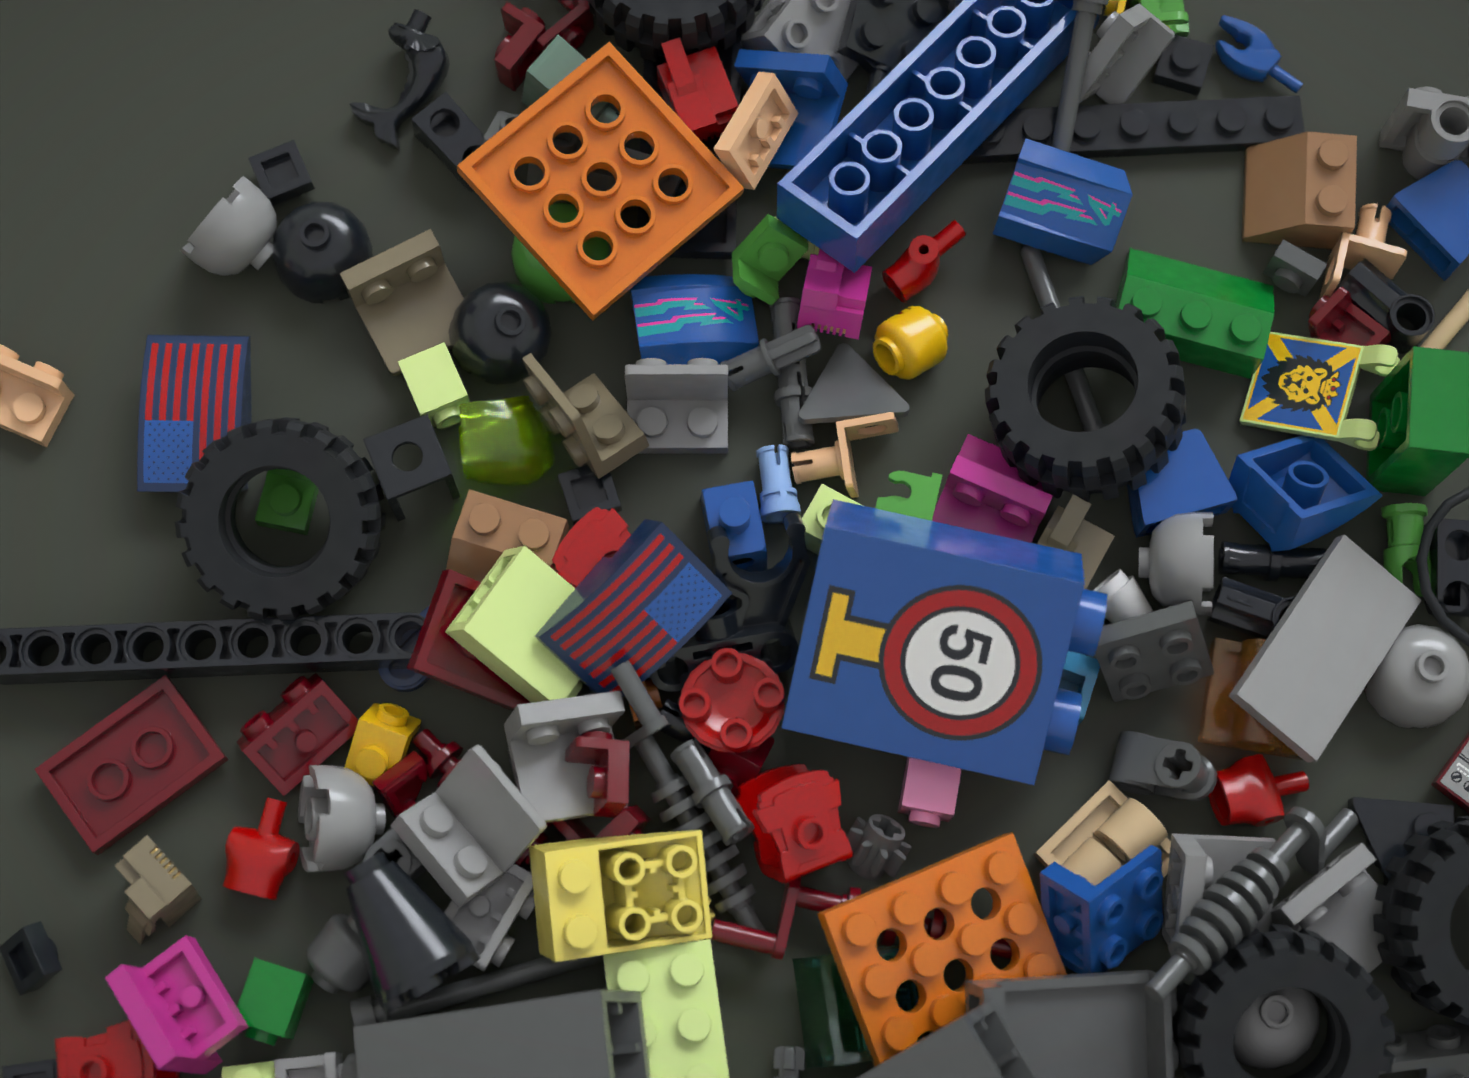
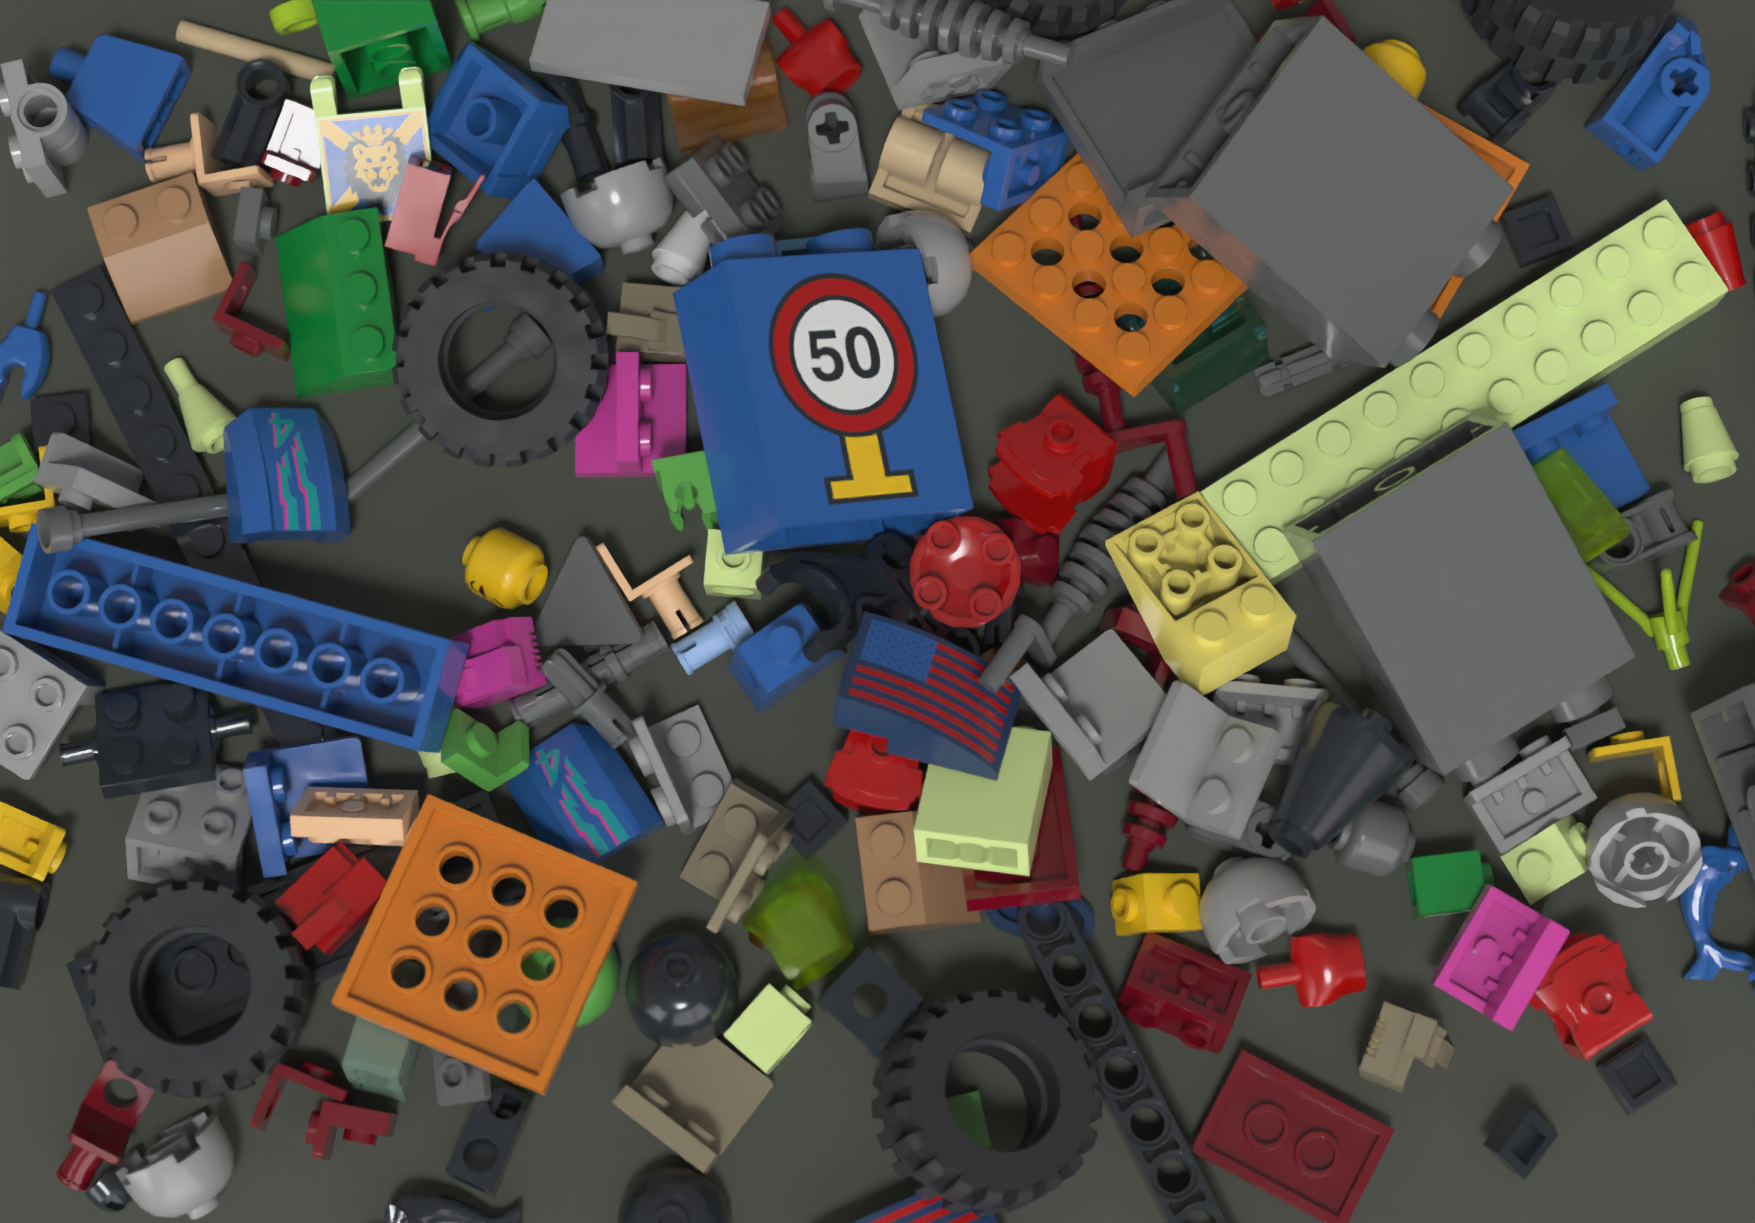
camera: 110 degrees left, 5 degrees up
(402, 783) = (1188, 864): dark red tile -> none
(610, 776) = (1091, 652): dark red bracket -> none
(712, 792) = (1060, 552): dark grey pin -> none
(877, 847) = (1034, 380): dark grey gear -> none
(920, 262) = (428, 600): red piece -> none
(929, 792) = (965, 355): bright pink brick -> none
(1024, 808) = (942, 252): none -> light grey cylinder
(1150, 168) = (201, 411): none -> yellowish green cone
(1219, 217) = (243, 335): none -> dark red bracket
(1248, 397) = (420, 207): none -> piece

